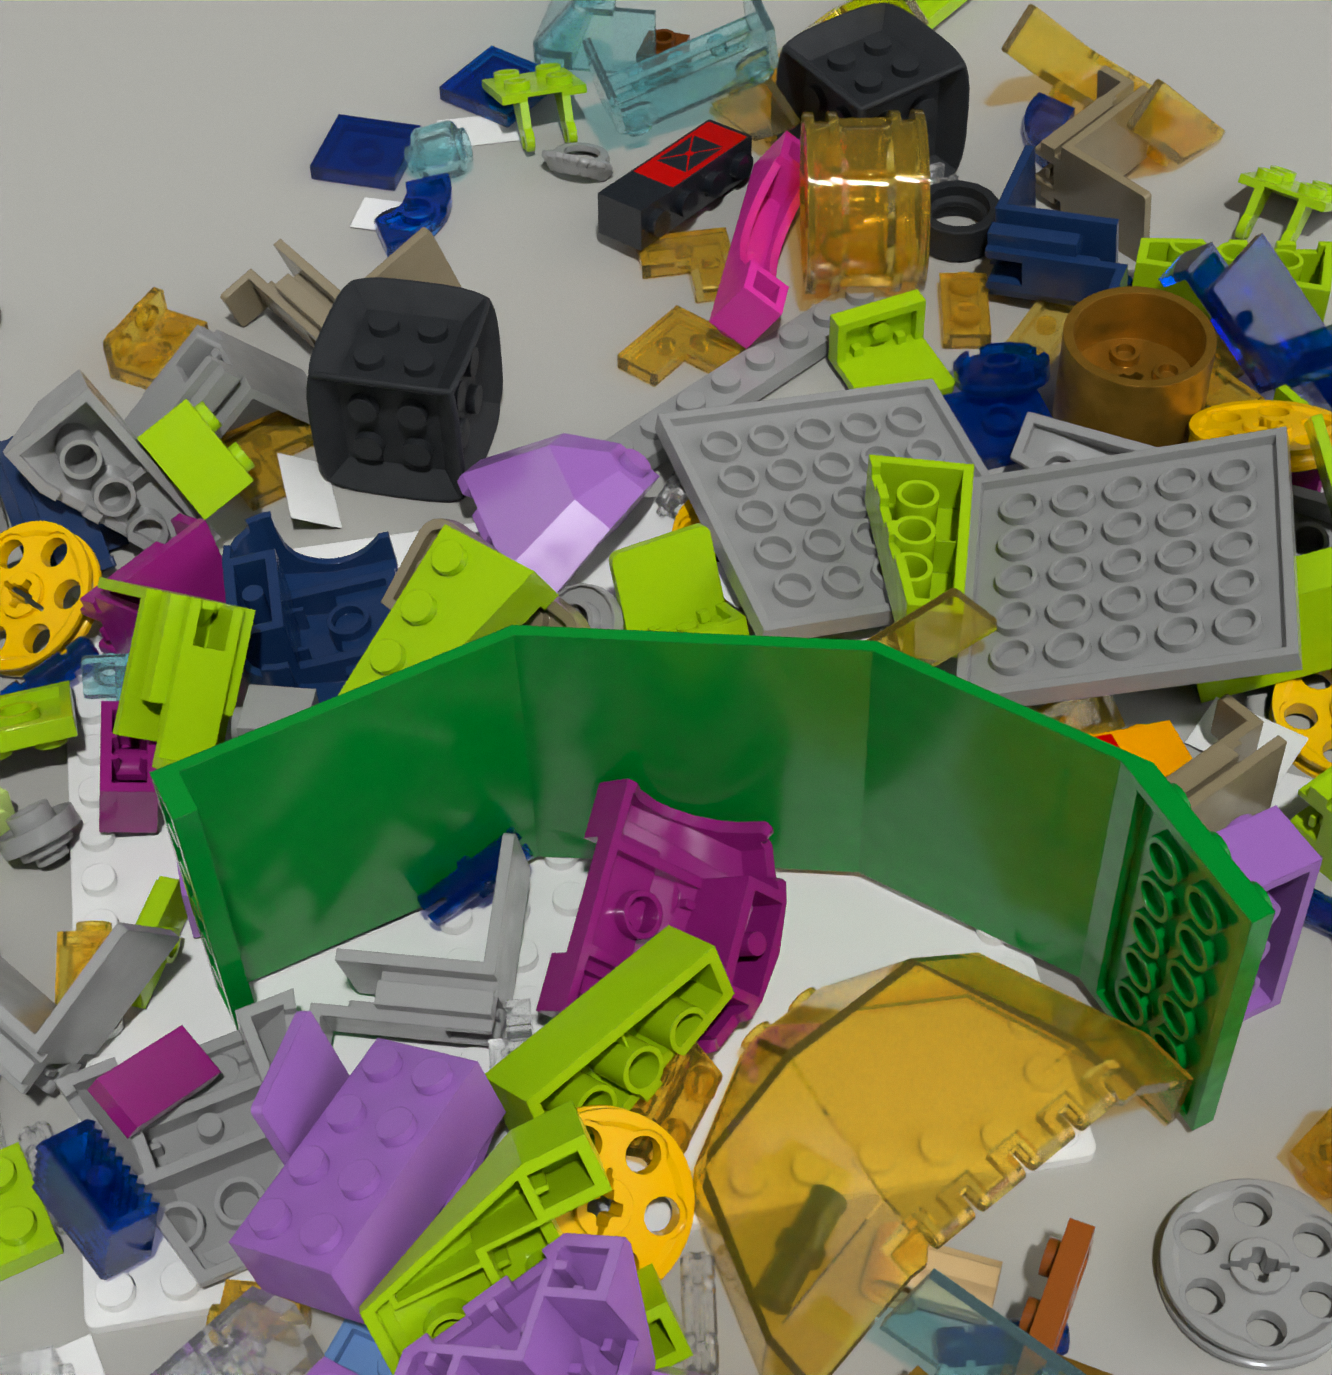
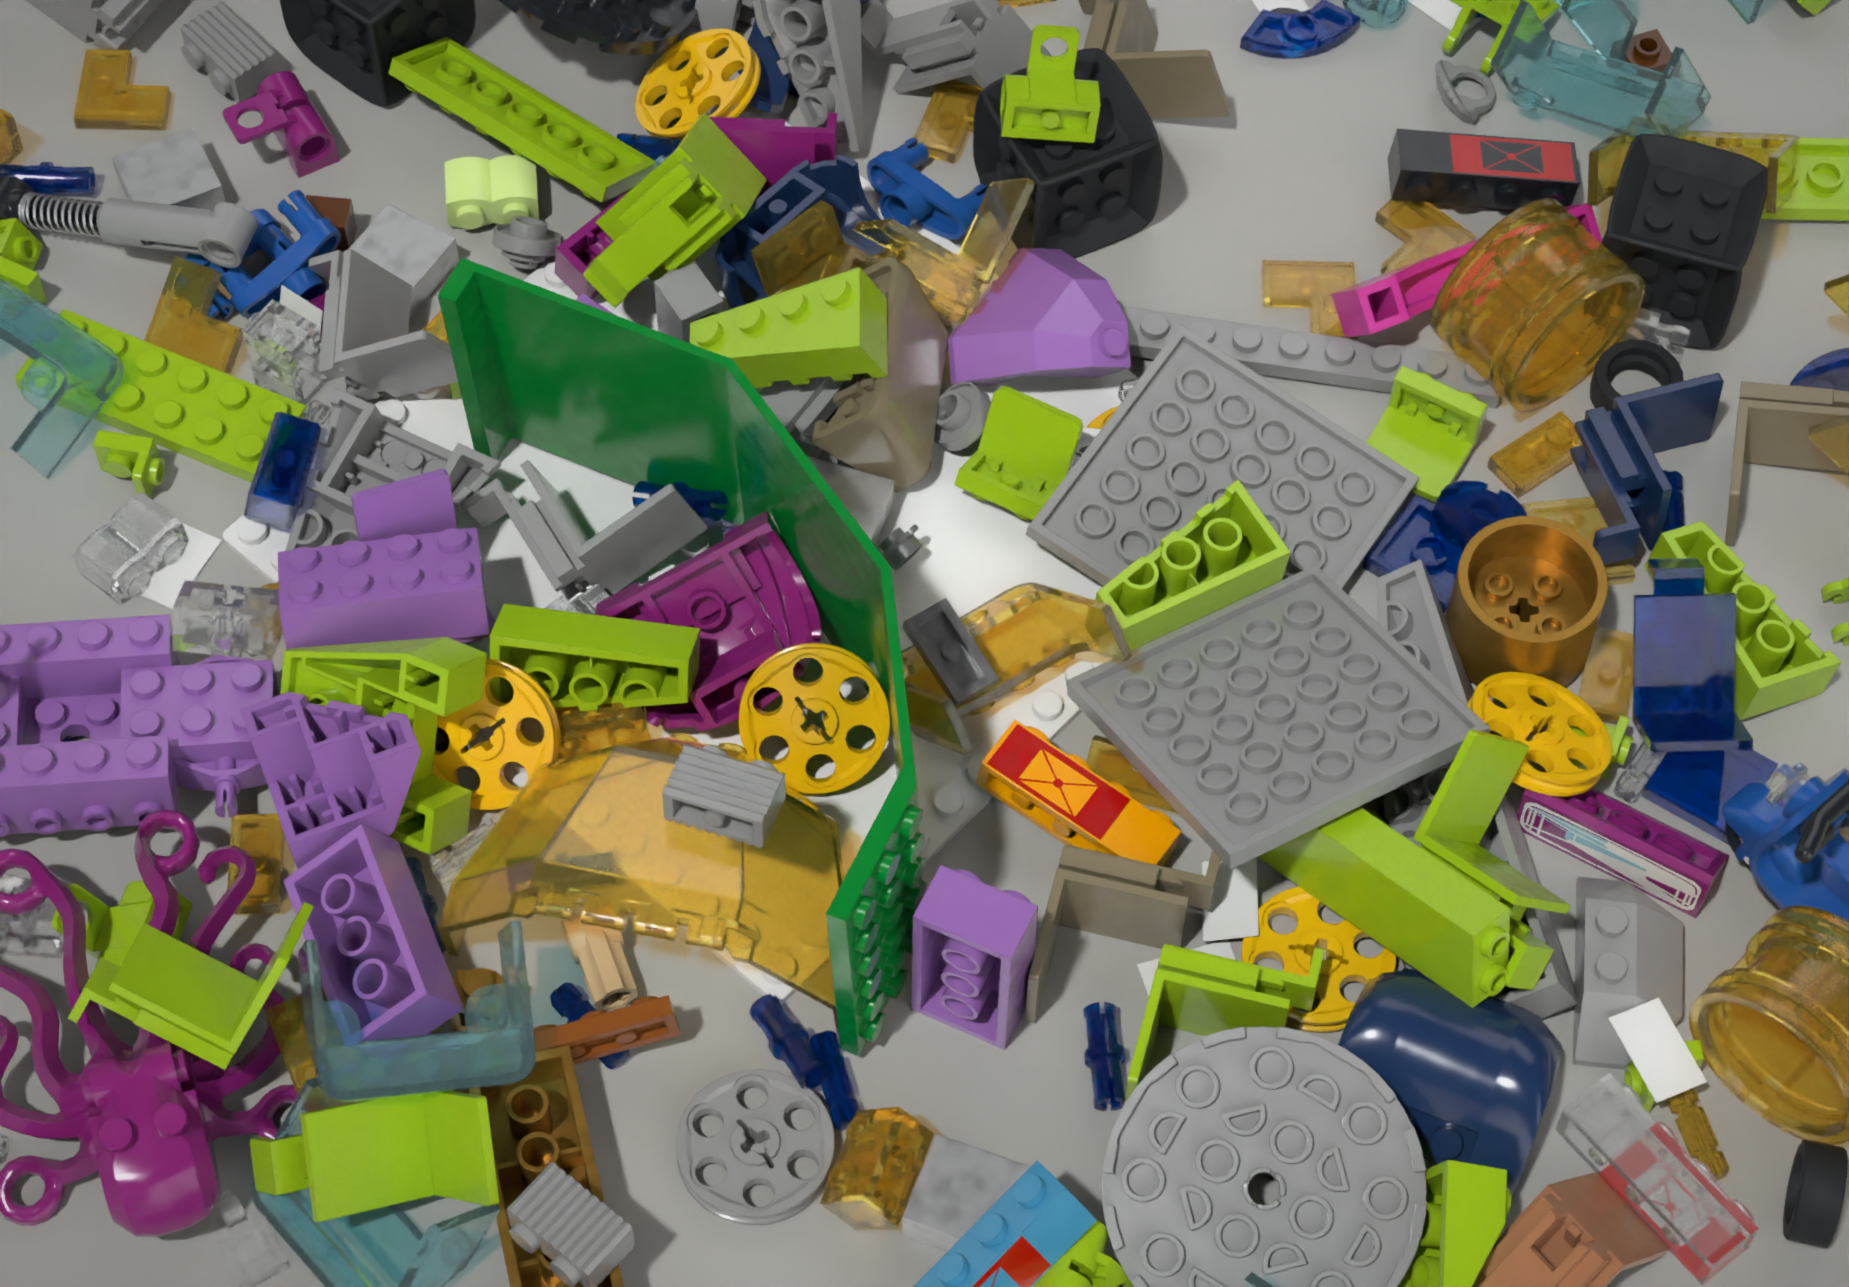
camera: 50 degrees right, 10 degrees up
(154, 1081) = (379, 439): magenta tile -> none
(197, 458) = (884, 86): lime piece -> none
(308, 491) = (953, 164): white sticker -> none
(322, 615) = (798, 250): none -> clear yellow bracket
(346, 517) = (916, 199): none -> blue connector
(378, 328) = (1048, 98): none -> lime piece
(435, 480) = (946, 278): none -> clear yellow piece
(844, 887) = (819, 695): none -> yellow wedge
(950, 978) = (724, 794): none -> light grey brick
(1161, 1165) = (789, 1041): none -> clear blue pin
(1223, 1155) = (837, 1085): none -> clear blue axle

